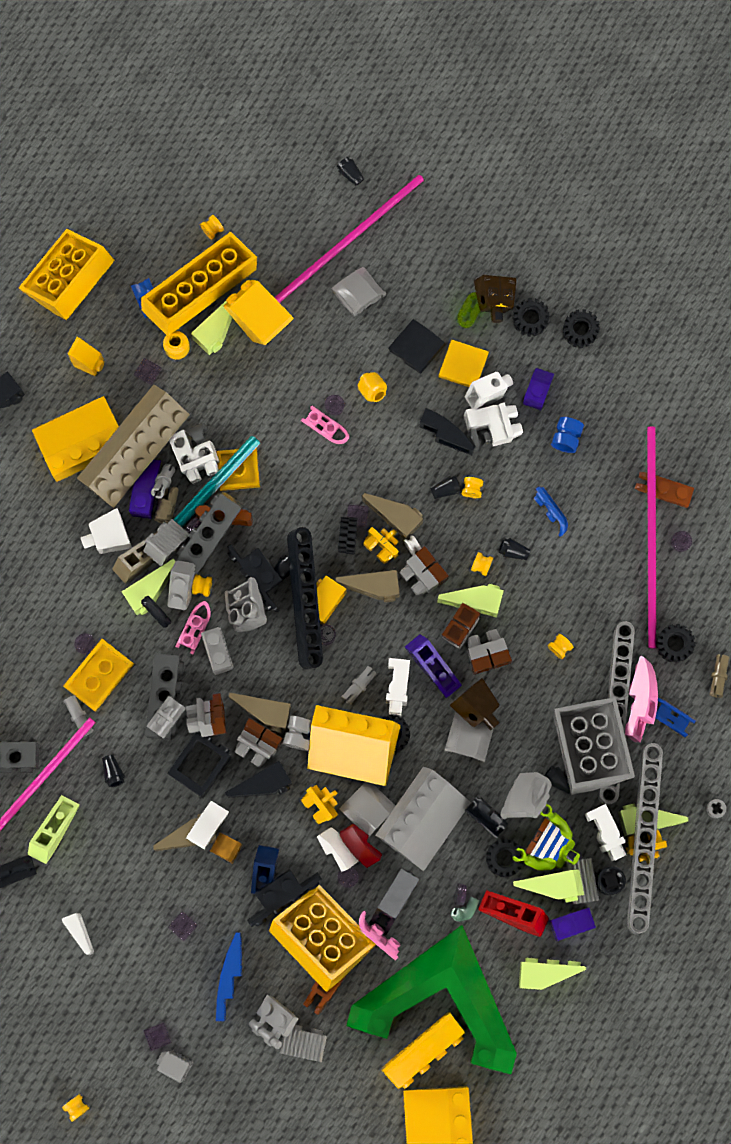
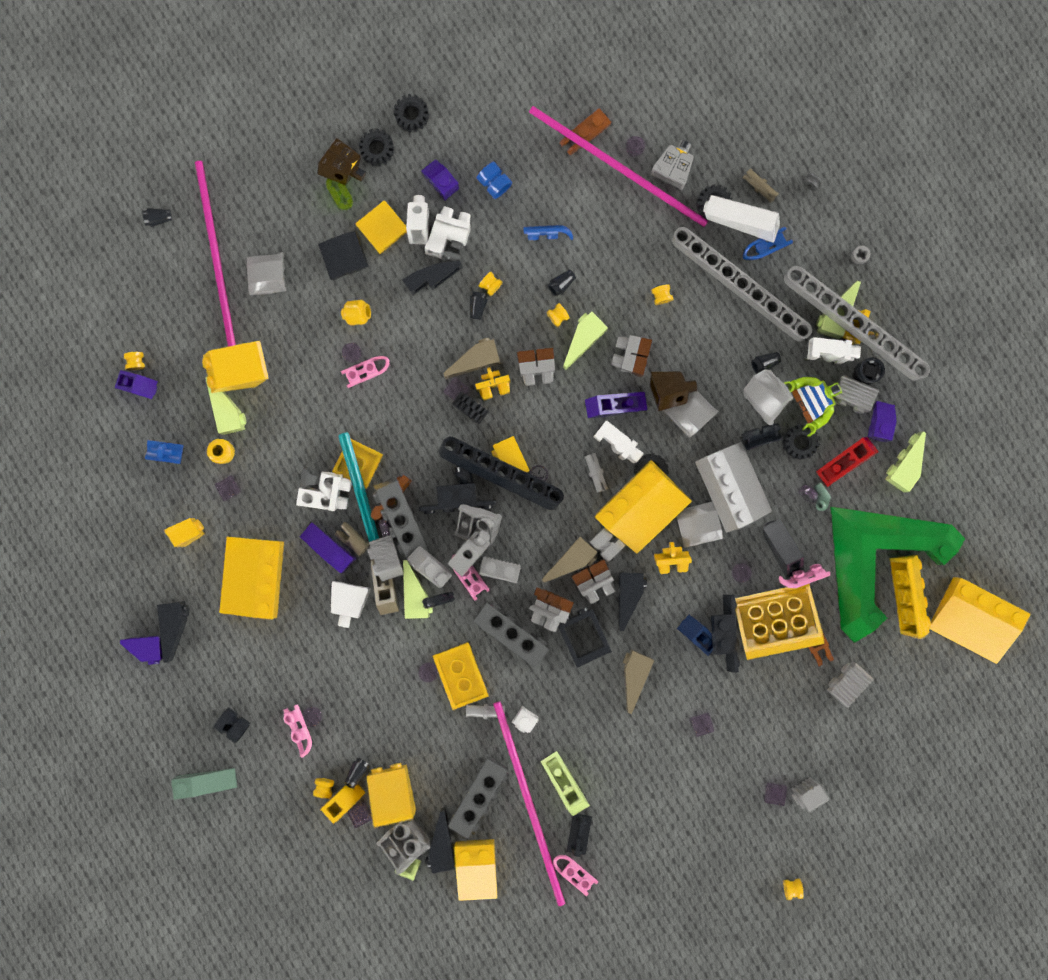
camera: 60 degrees left, 10 degrees up
(67, 273) = (100, 505): yellow slope -> none
(77, 928) = (655, 809): white slope -> none
(91, 756) = (525, 720): none -> white brick
(112, 772) = (547, 710): black cone -> none
(133, 446) = (288, 538): dark tan brick -> none
(163, 481) = (332, 530): light grey pin -> none
(166, 717) = (533, 643): light grey hips -> none
(191, 239) = (136, 384): none -> dark purple slope
(199, 283) = (179, 401): yellow brick -> none
(201, 585) = (438, 550): yellow wheel -> none
(207, 825) = (639, 660): white slope -> none
(224, 613) = (473, 548): none -> light grey torso
(226, 848) = (665, 655): pearl gold slope -> none
(231, 968) = (760, 707): blue slope -> none
(276, 1015) = (819, 692): light grey plate -> none
(332, 843) = (712, 567): white slope -> none
(357, 843) = (723, 550): dark red slope -> none
(375, 585) = (524, 409): dark tan slope -> none
(412, 545) = (508, 361): white bush -> none
(461, 626) = (600, 362): reddish brown hips -> none
(560, 885) = (850, 415): yellowish green slope -> none
(593, 745) = (759, 318): light grey slope -> none
(645, 693) = (740, 251): bright pink slope -> none
(675, 674) = (743, 217): none -> white slope
(686, 585) = (674, 165): none -> light grey torso

